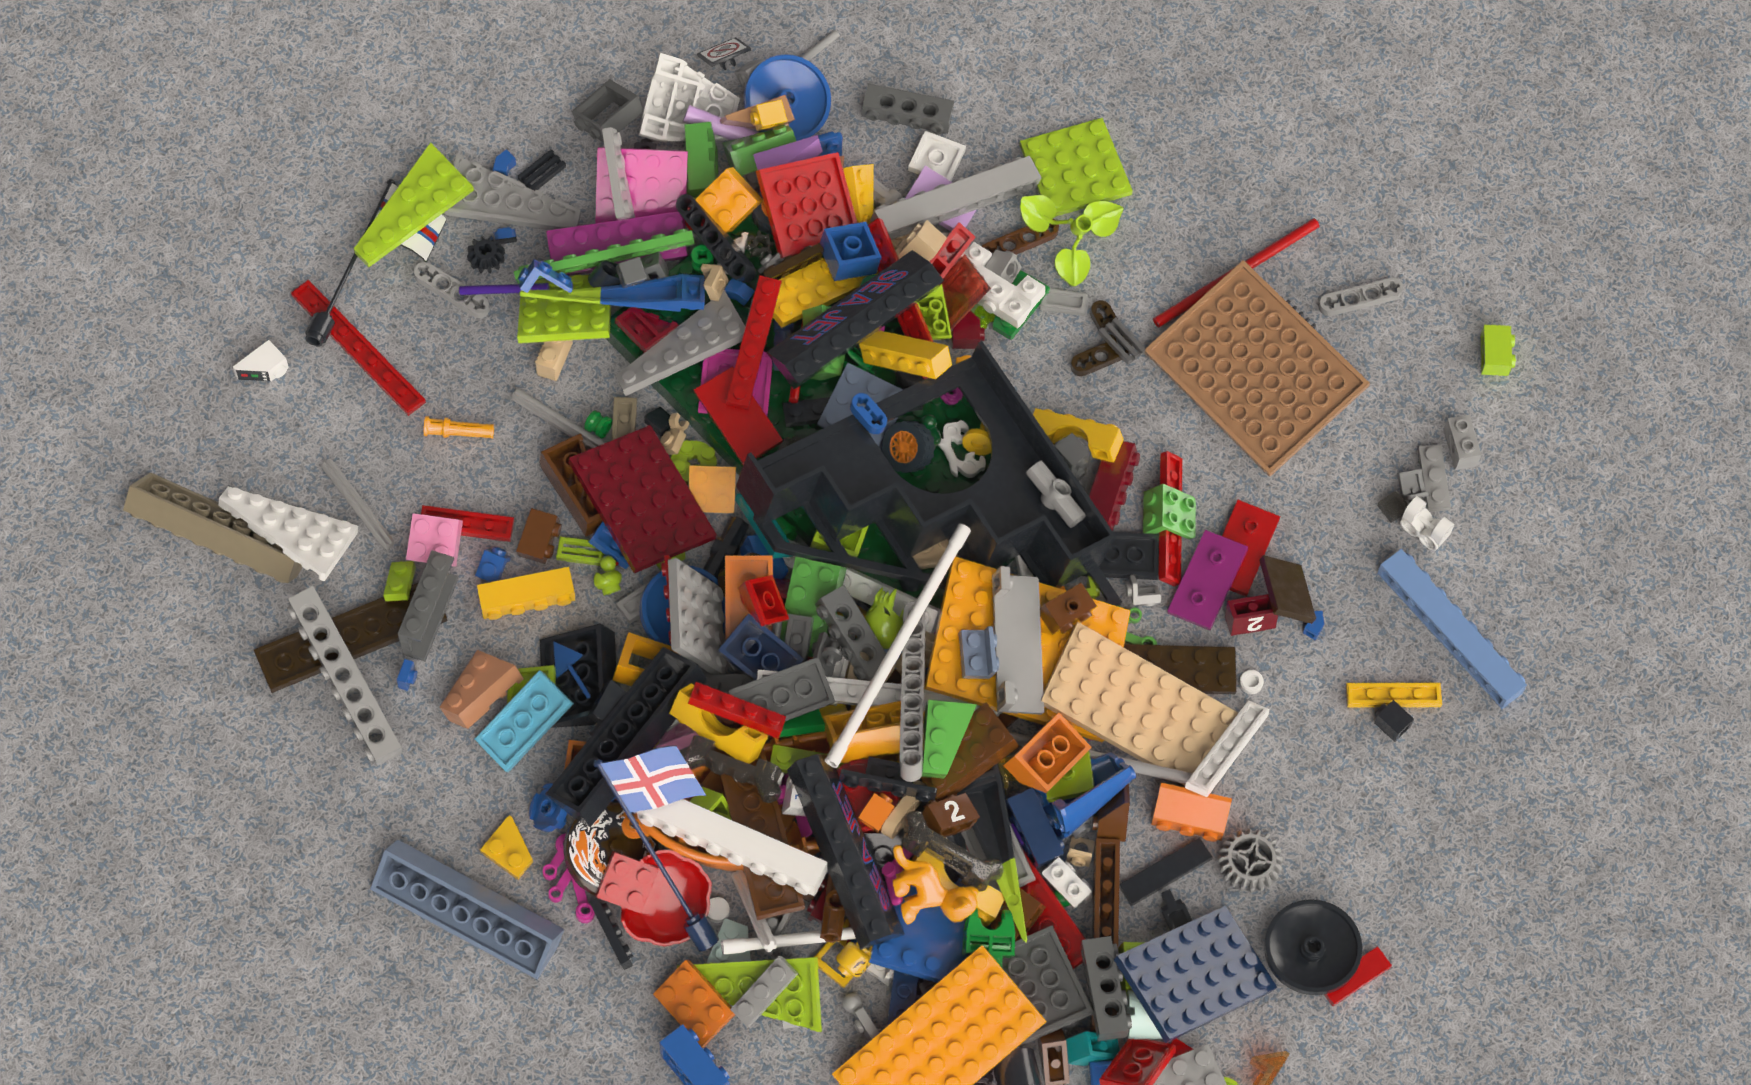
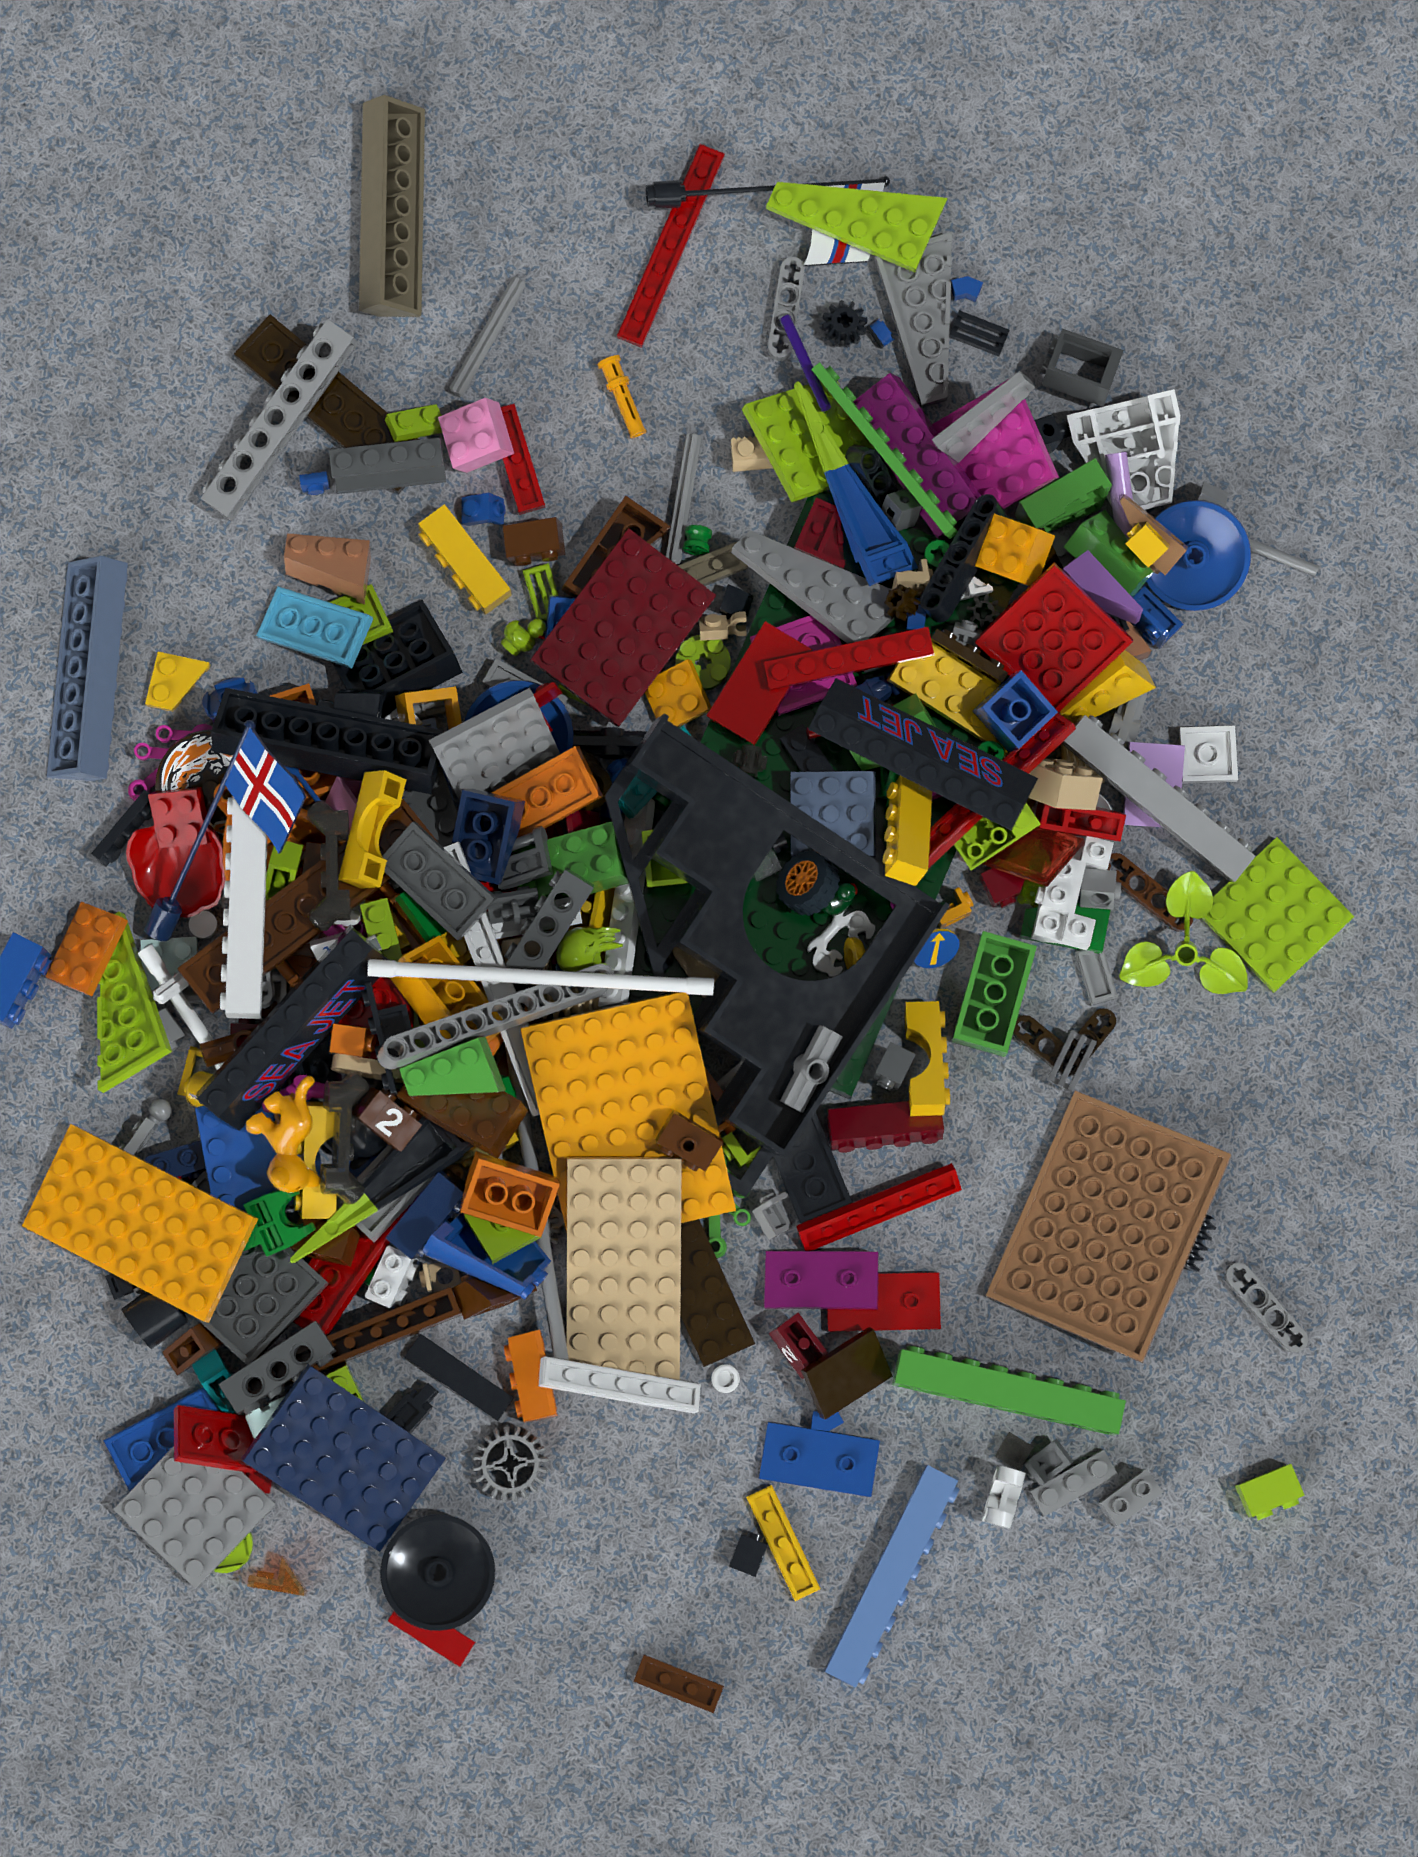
camera: 65 degrees right, 15 degrees up
(262, 364) = (600, 157): white slope -> none
(304, 535) = (419, 298): white wing -> none
(529, 276) = (828, 398): blue bracket -> none
(564, 660) = (403, 636): blue piece -> none
(631, 272) = (874, 487): dark grey piece -> none
(723, 52) = (1223, 458): piece -> none
(732, 287) = (902, 602): none -> dark brown gear
(737, 710) = (391, 841): red plate -> none
(763, 600) = (536, 812): red slope -> none
(764, 991) = (117, 1014): light grey plate -> none
(869, 413) = (805, 824): blue beam -> none
(900, 100) = (1251, 651): dark grey brick -> none
(978, 653) = (583, 1067): sand blue bracket -> none
(1018, 643) = (619, 1105): light grey bracket -> none
(1047, 370) = (994, 994): none -> bright green brick
(1170, 511) = (884, 1204): bright green bracket -> none
(1253, 262) = (1238, 1158): red piece -> none
(1341, 643) = (819, 1459): none -> blue plate
(1349, 487) = (1009, 1392): none -> bright green brick
(1470, 812) = (678, 1683): none -> reddish brown plate

